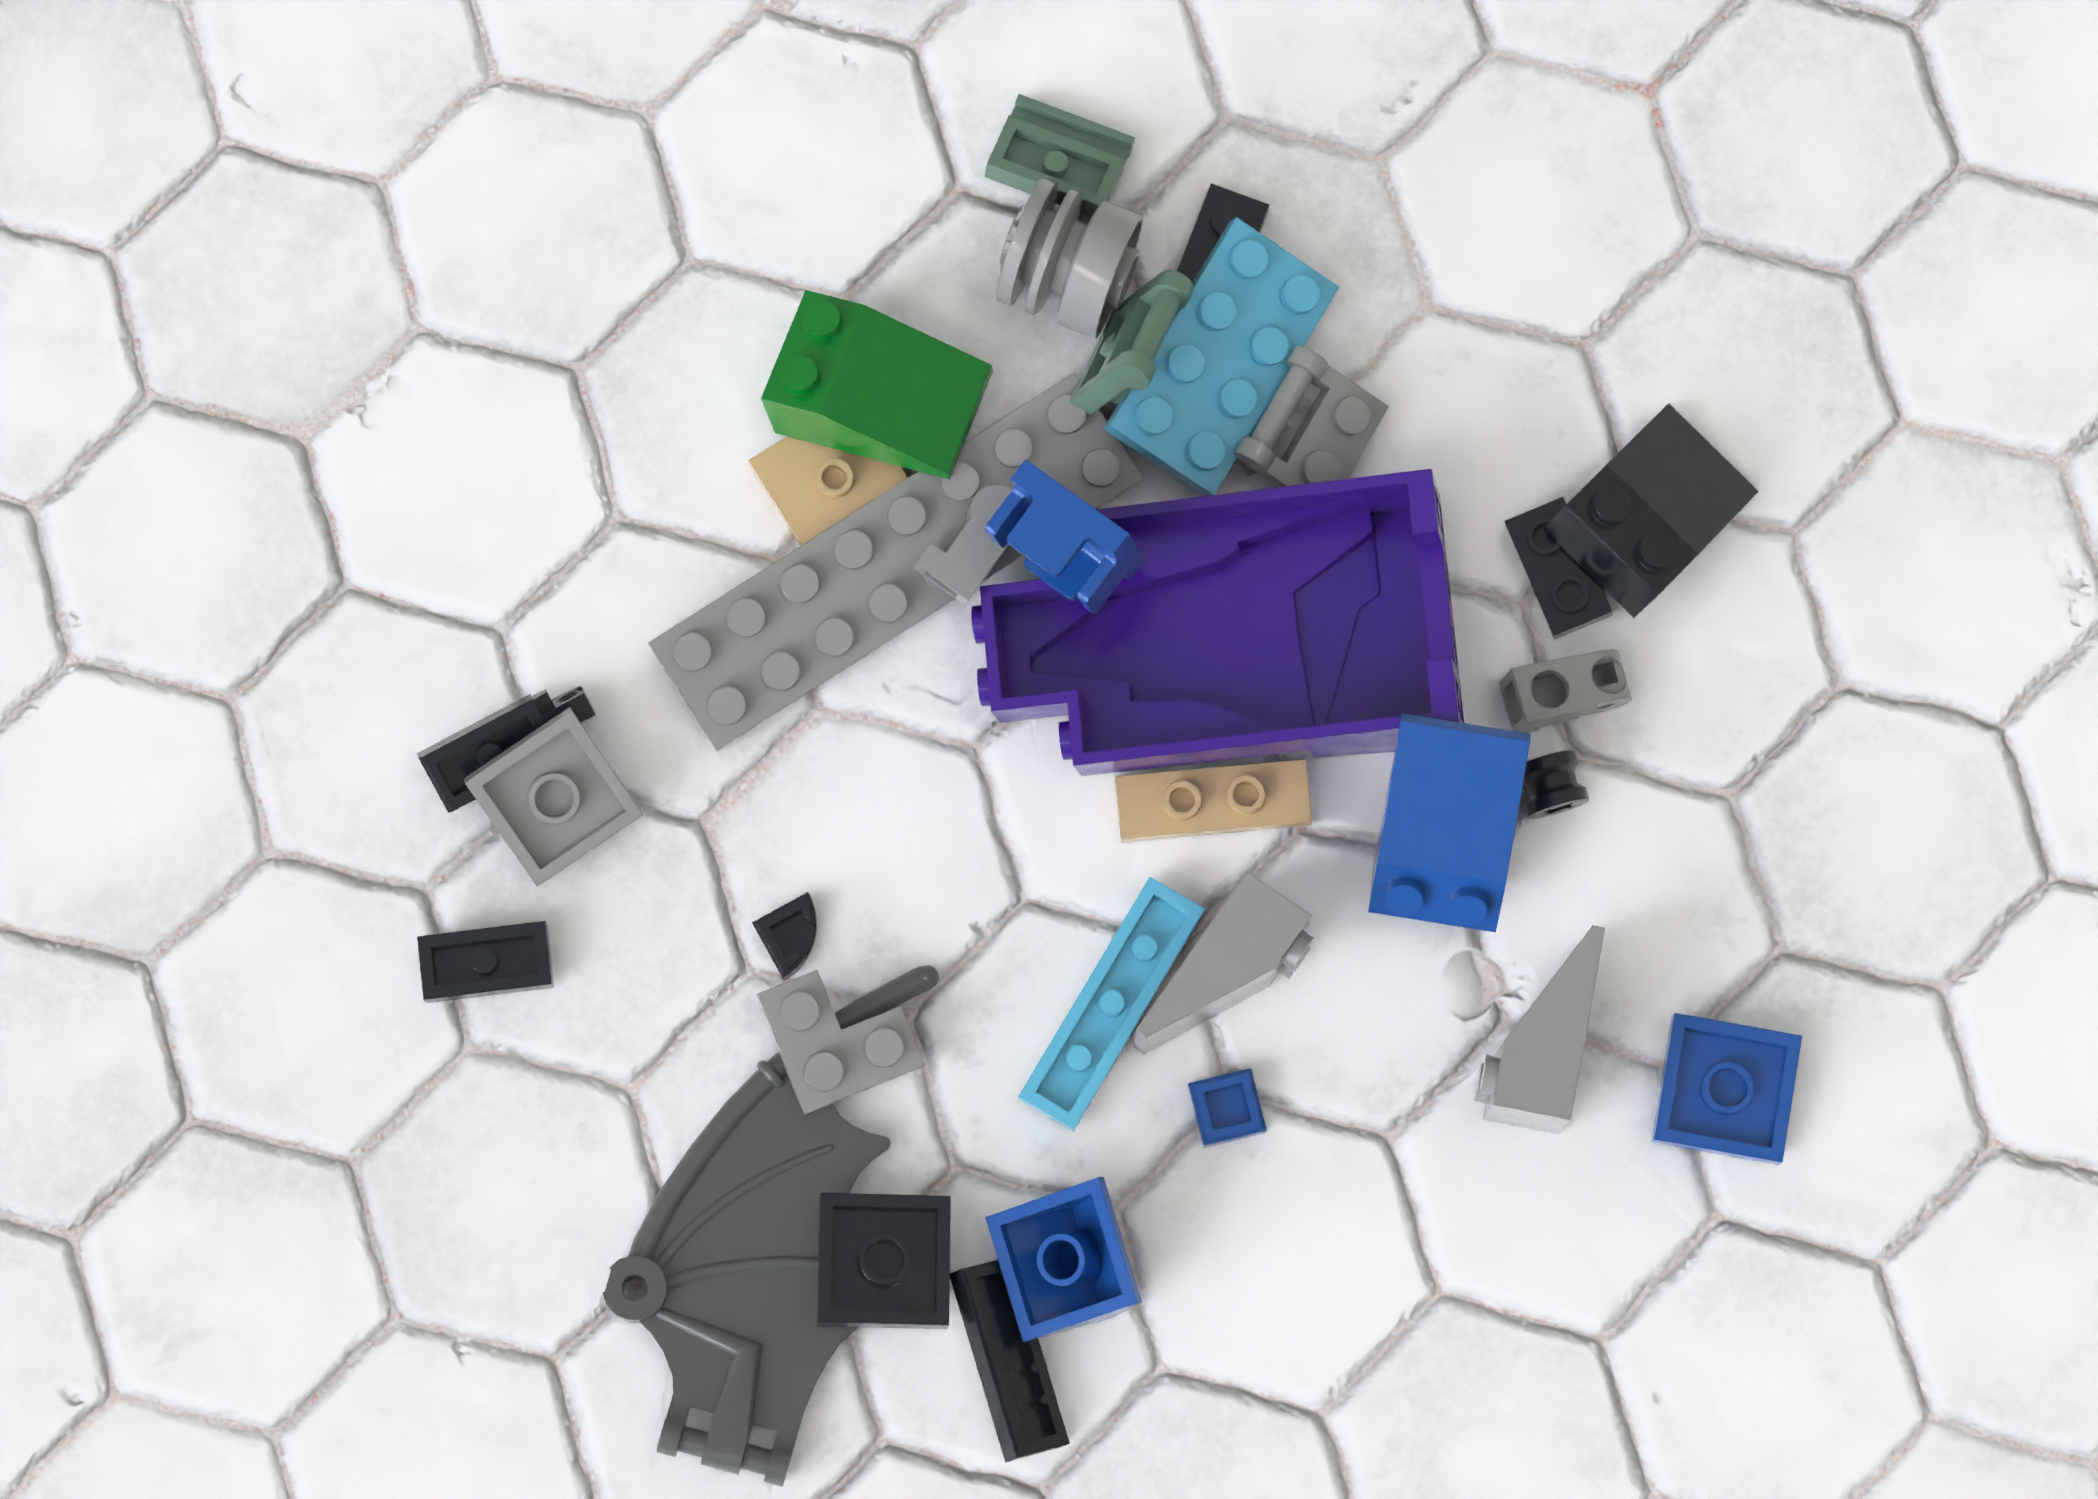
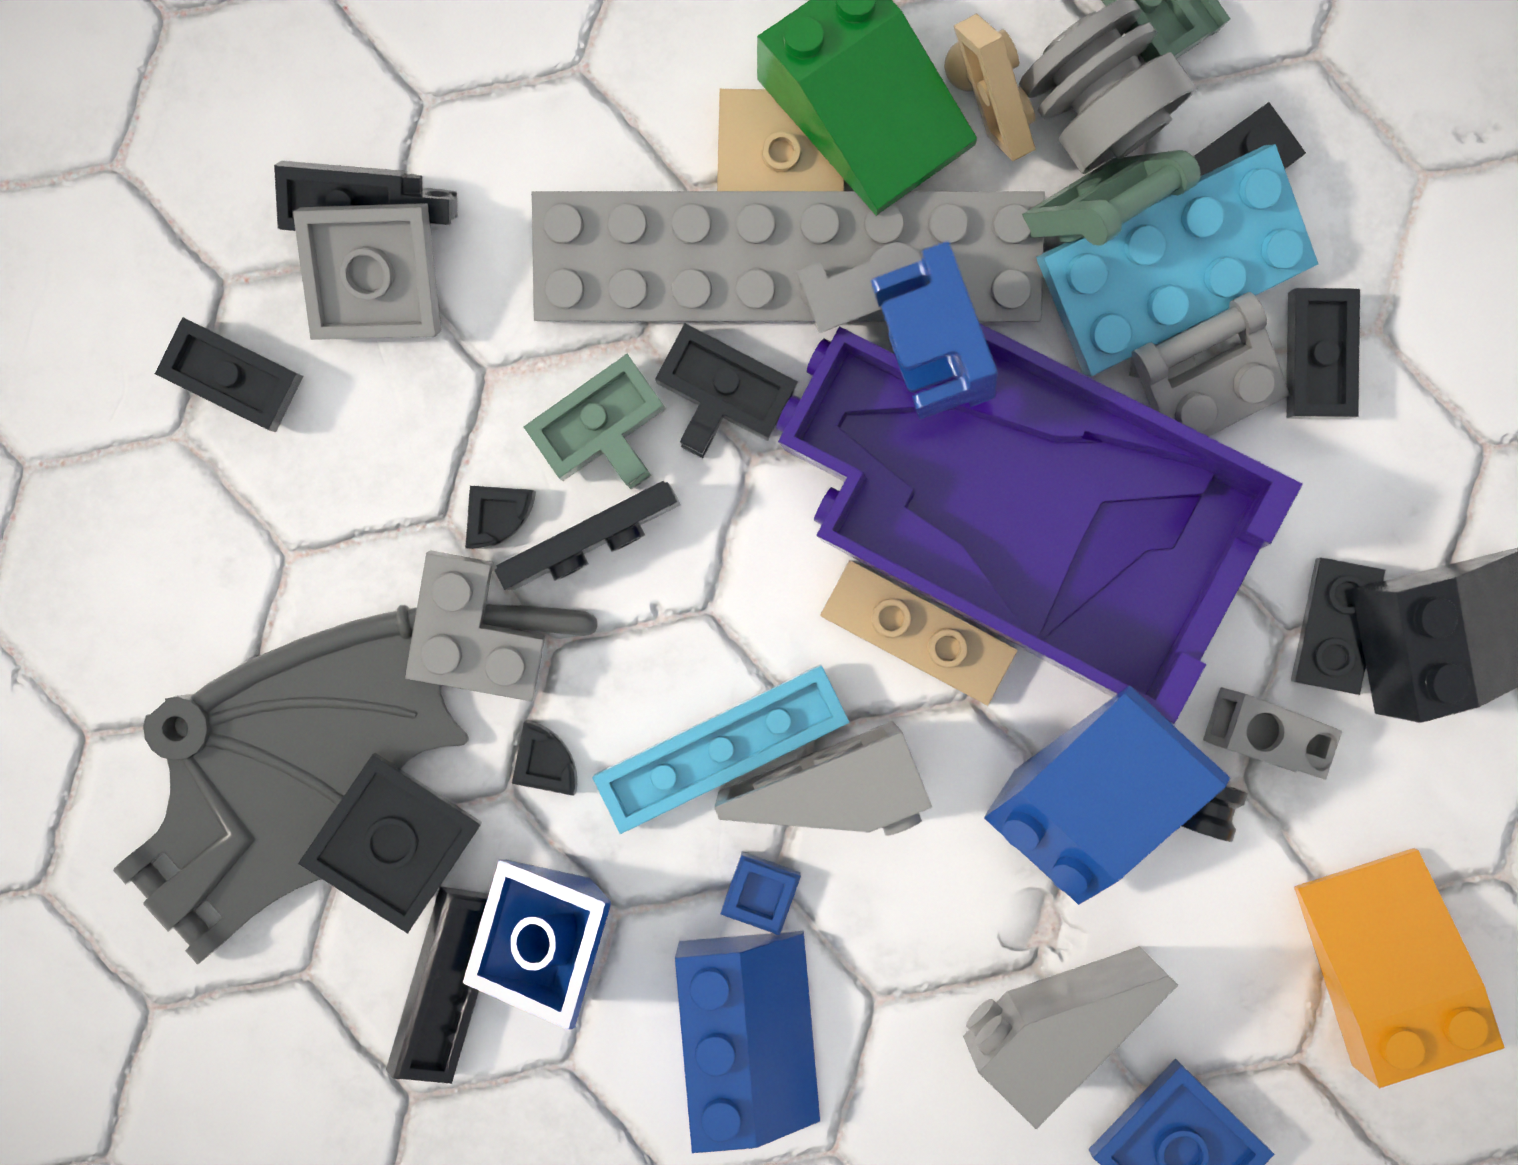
camera: 30 degrees right, 10 degrees up
(827, 798) = (597, 422): none -> sand green plate
(898, 875) = (565, 551): none -> black plate
(914, 700) = (723, 386): none -> black plate
(961, 302) = (985, 64): none -> tan plate
(968, 1117) = (544, 761): none -> black tile
(1295, 1233) = (746, 1039): none -> blue slope
(1393, 355) = (1323, 353): none -> black plate
(1795, 815) = (1397, 970): none -> light orange slope

